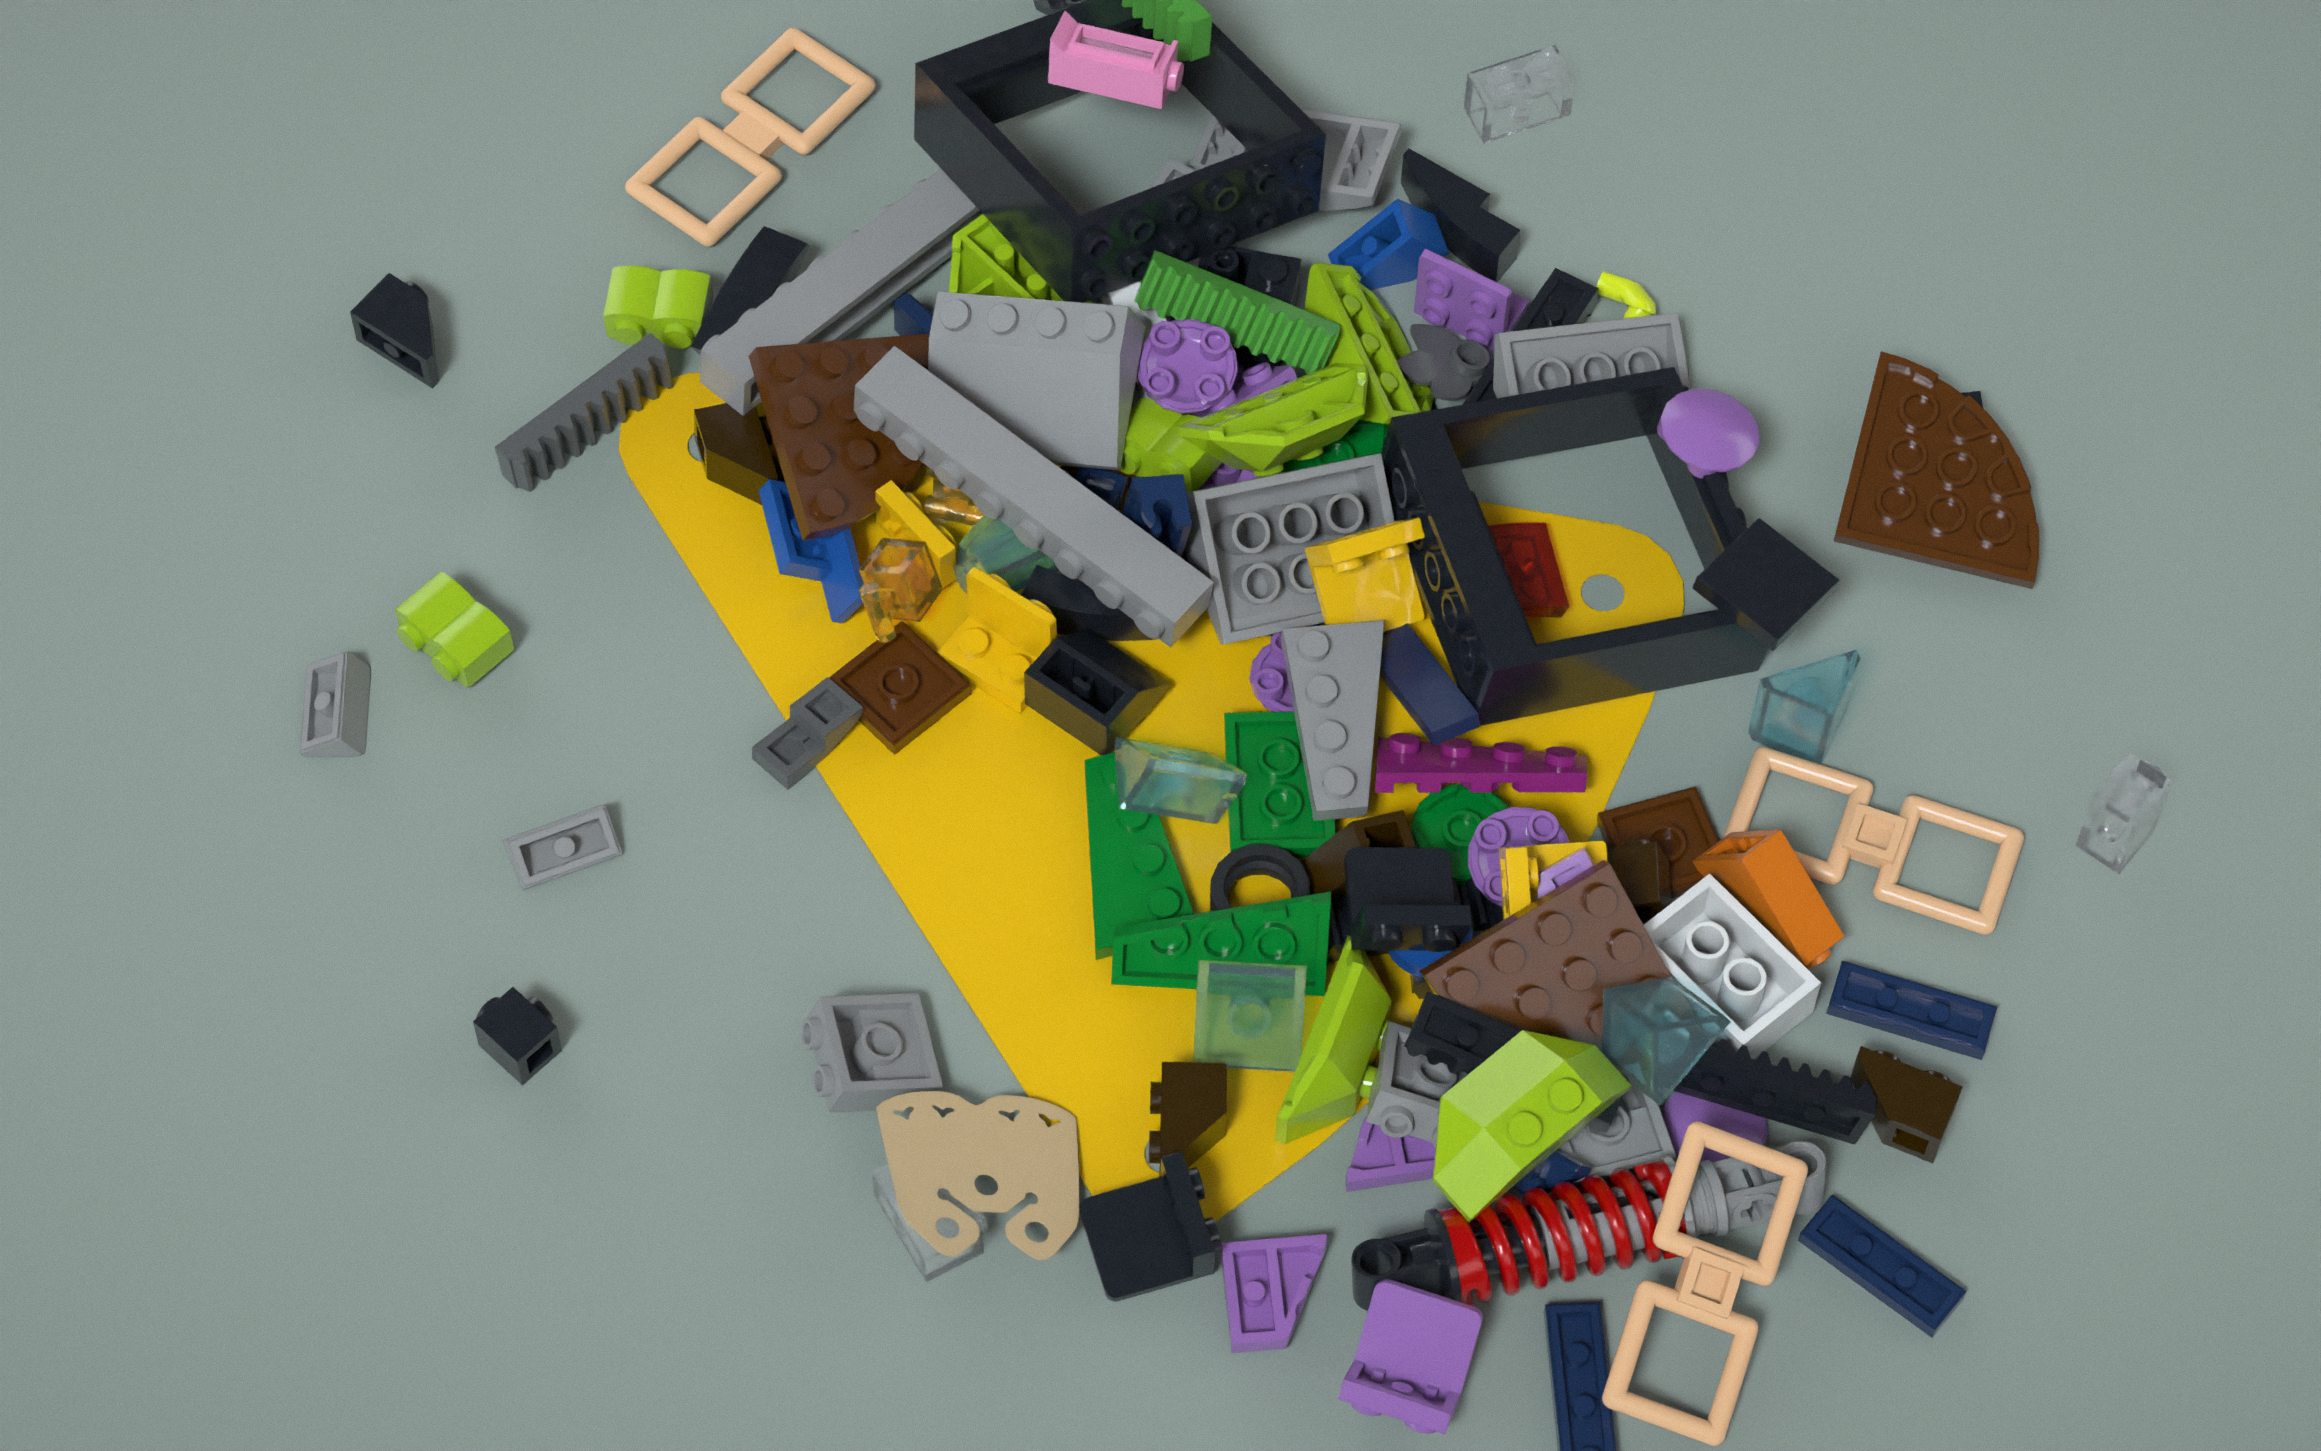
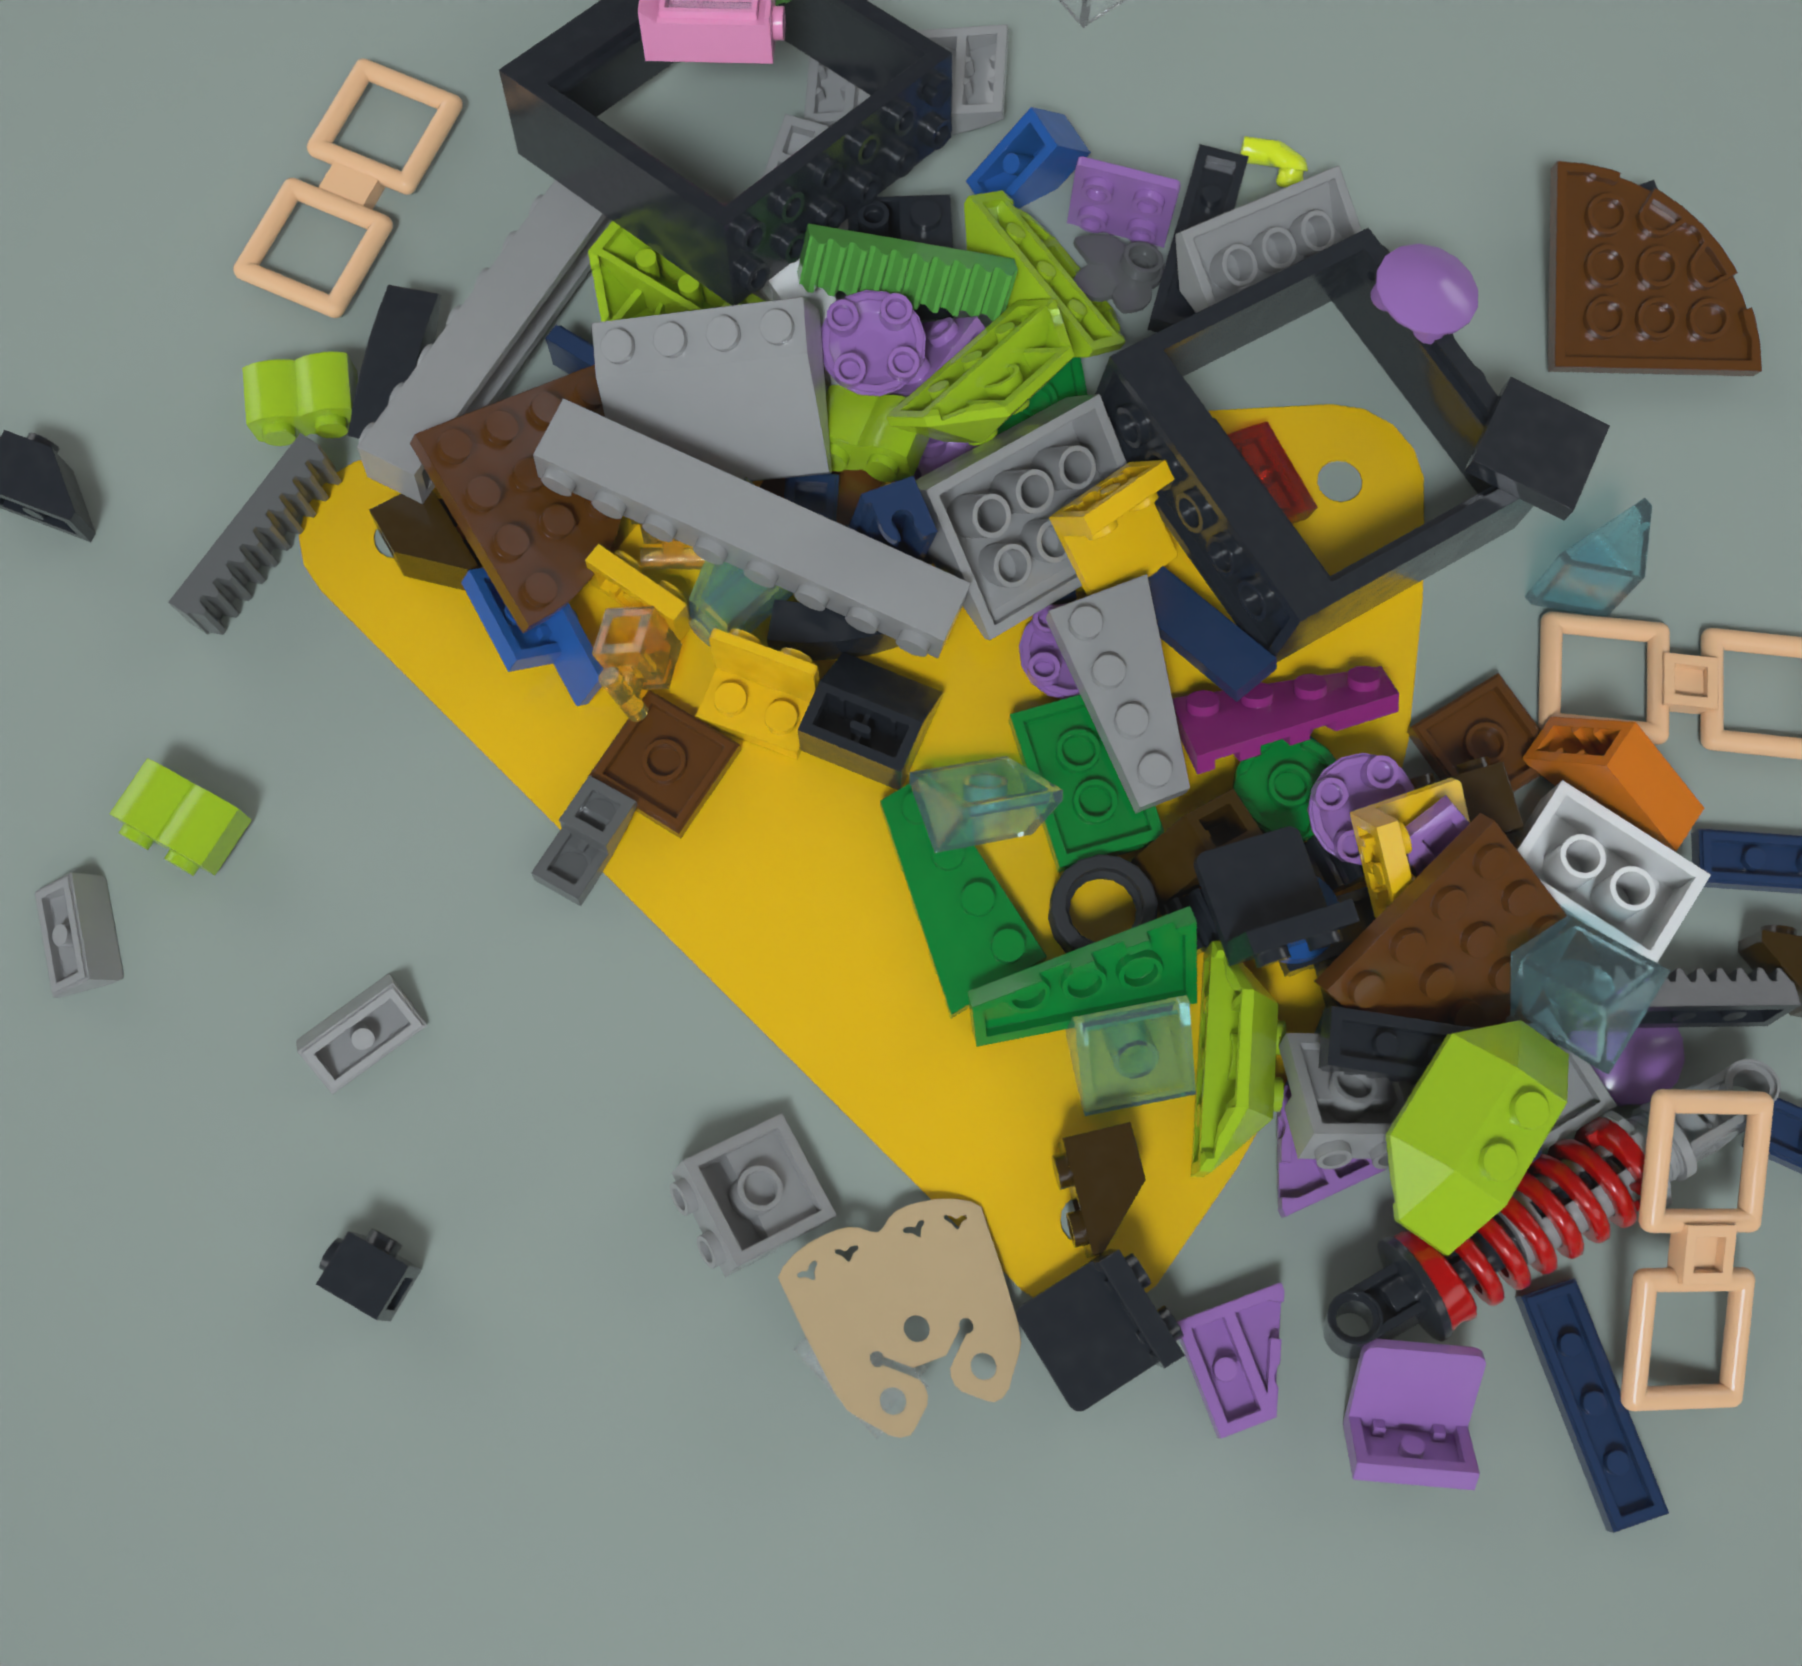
camera: 15 degrees left, 15 degrees up
(1462, 213) = (1108, 126): black slope -> none

